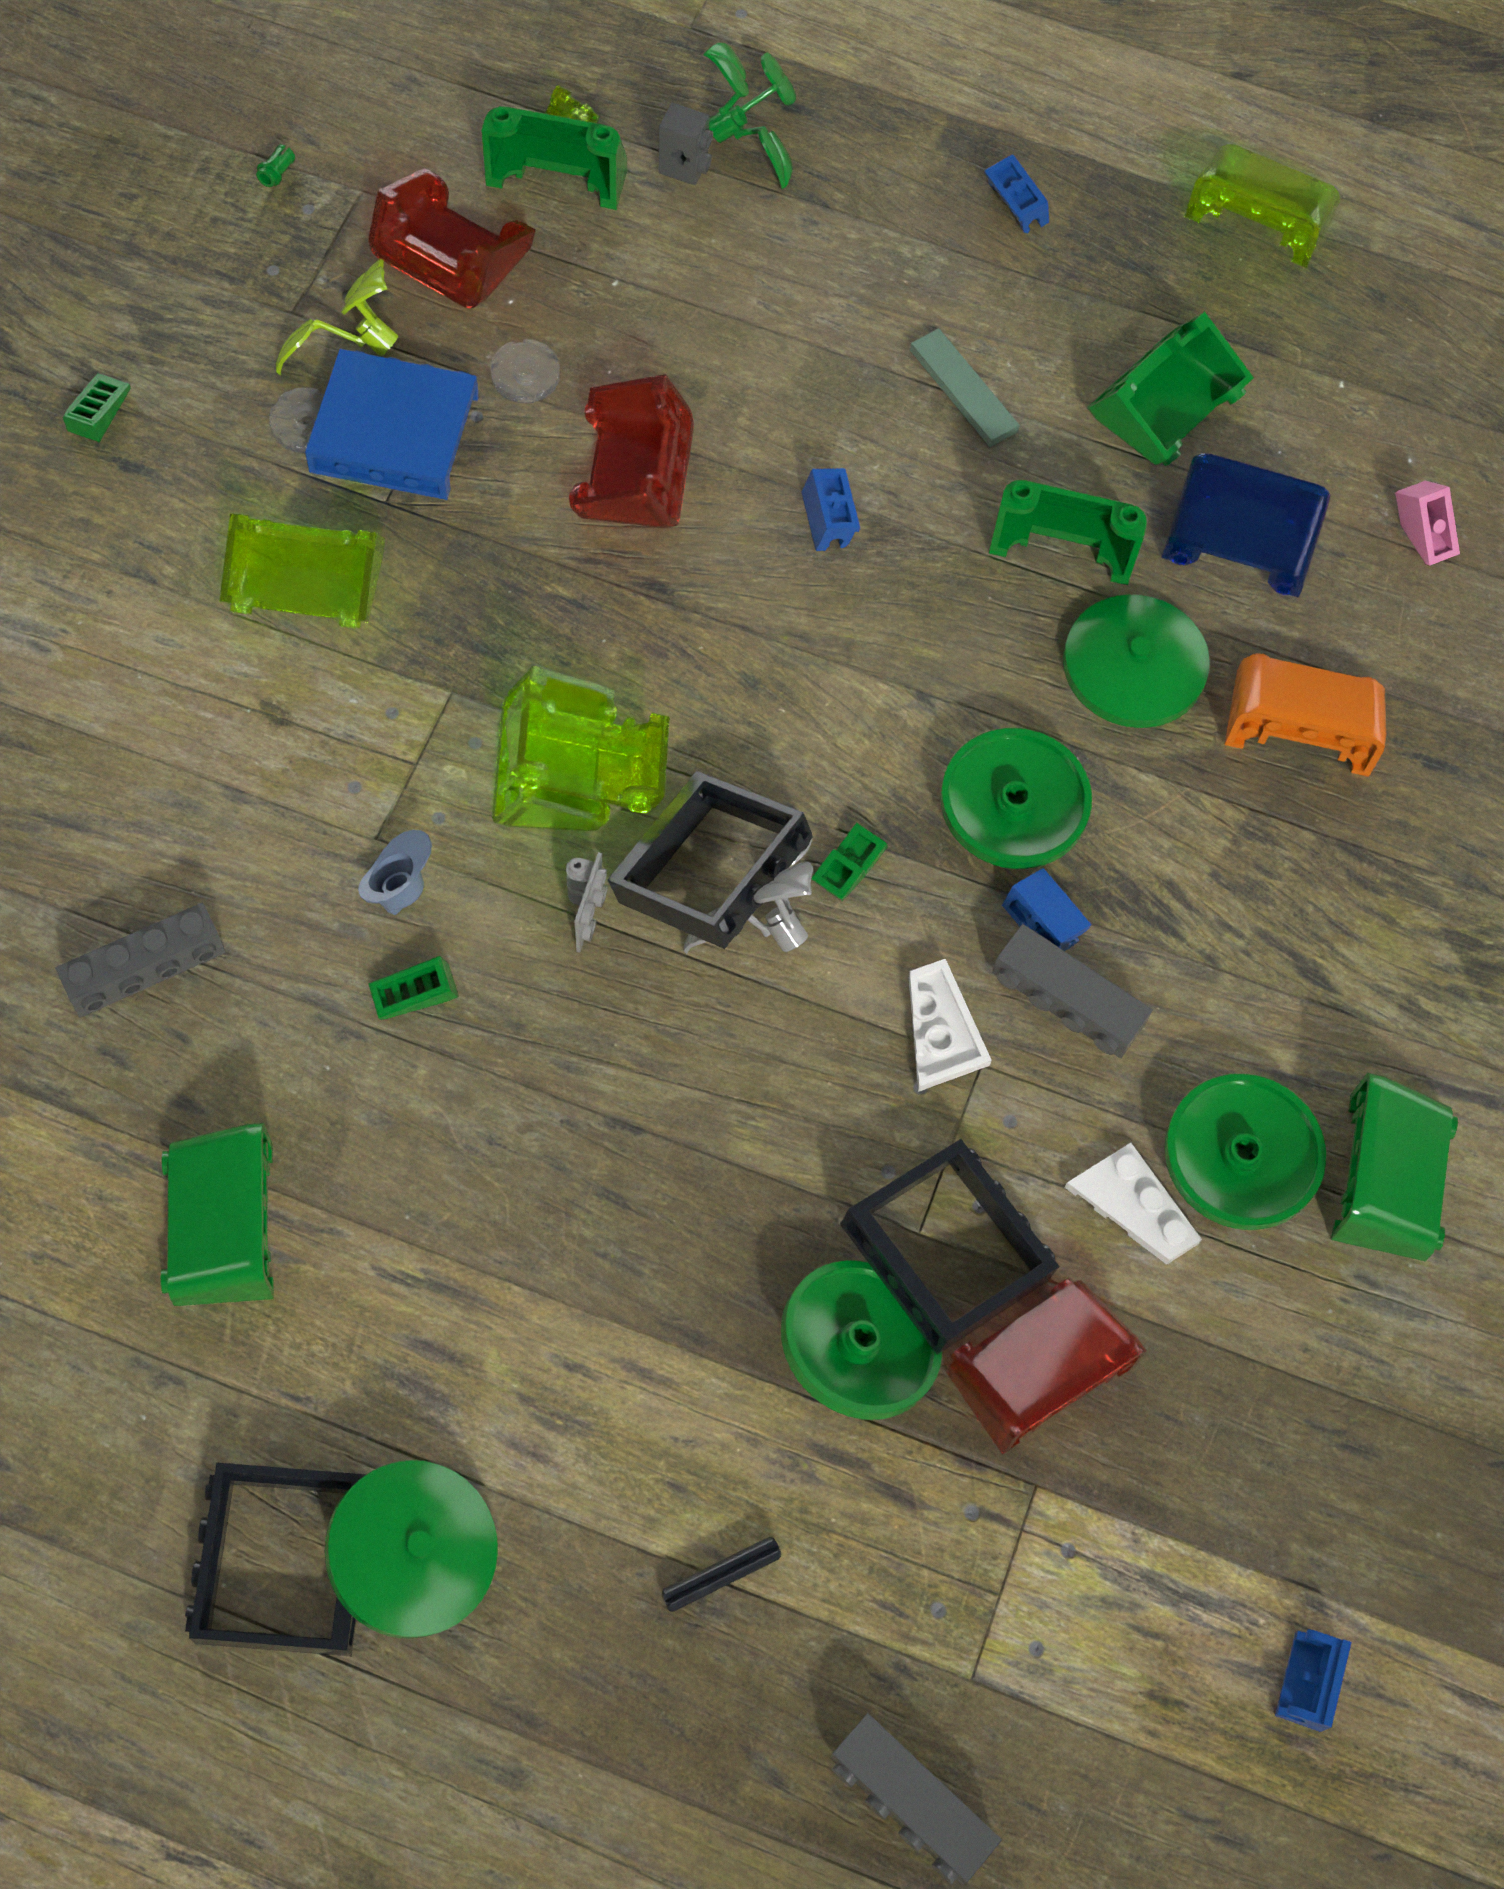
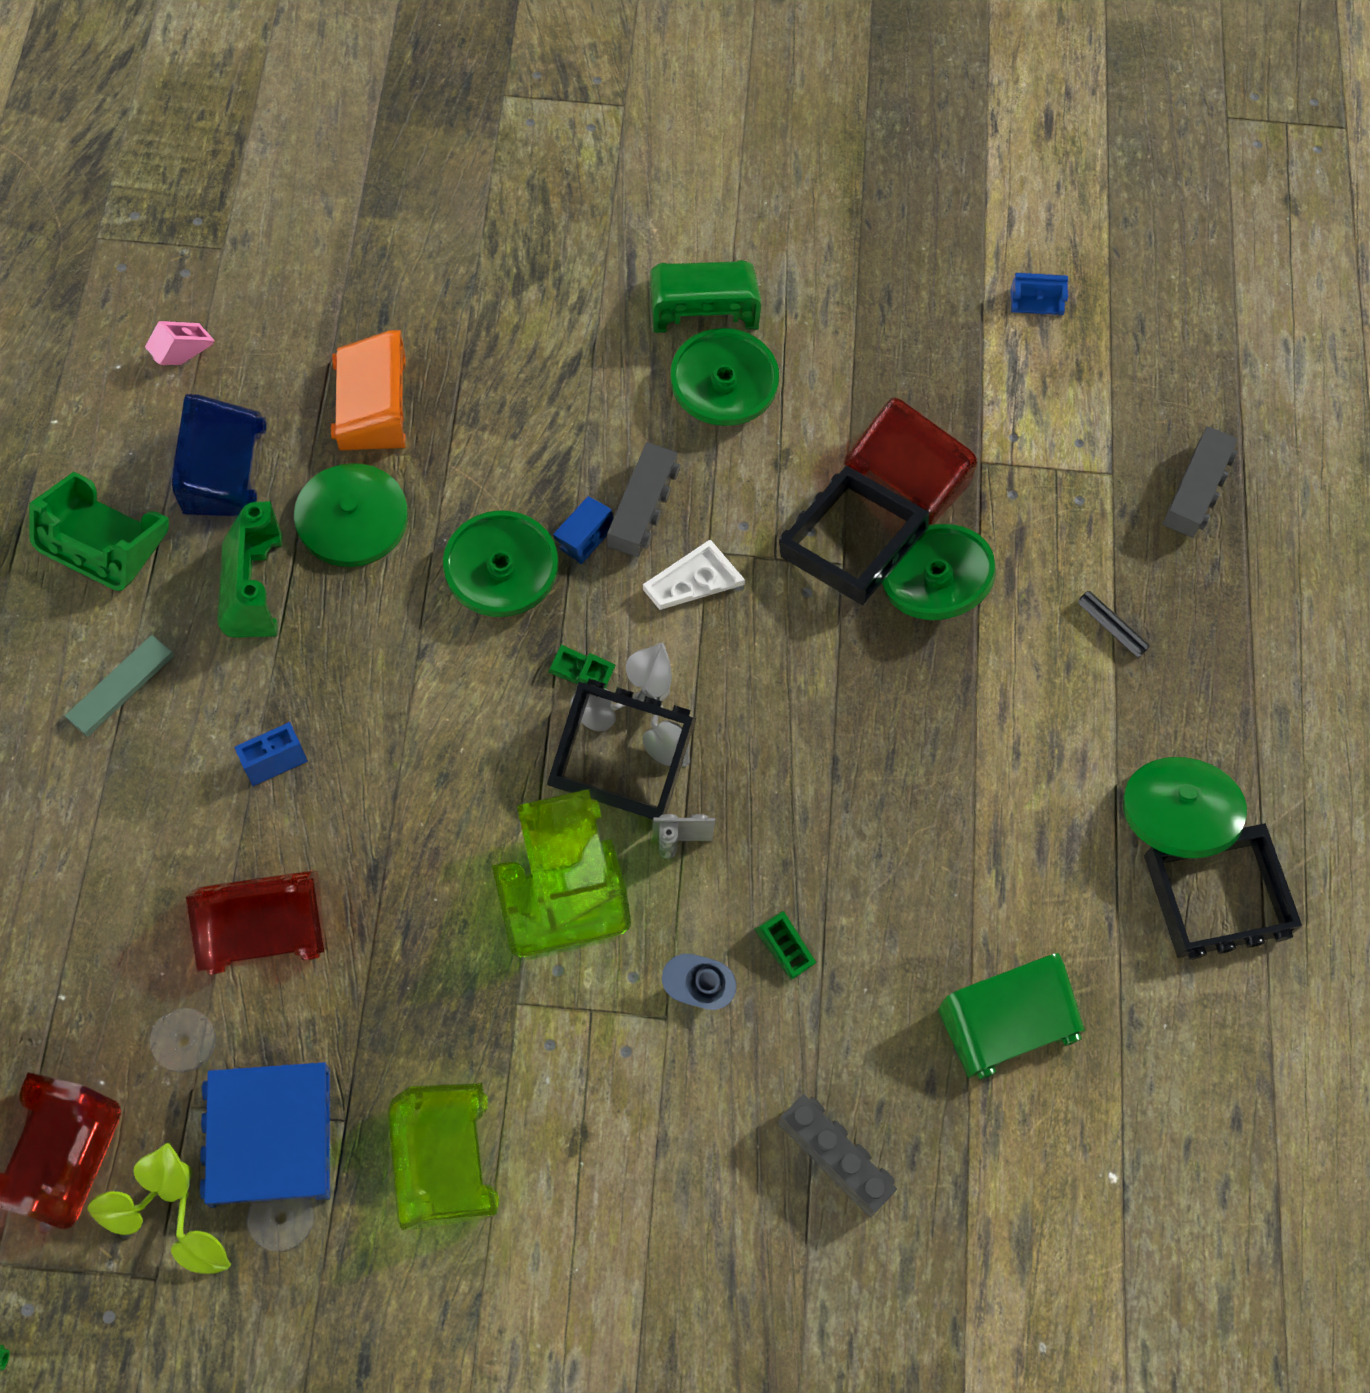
camera: 105 degrees left, 0 degrees up
(1136, 1201) = (775, 439): white wing -> none

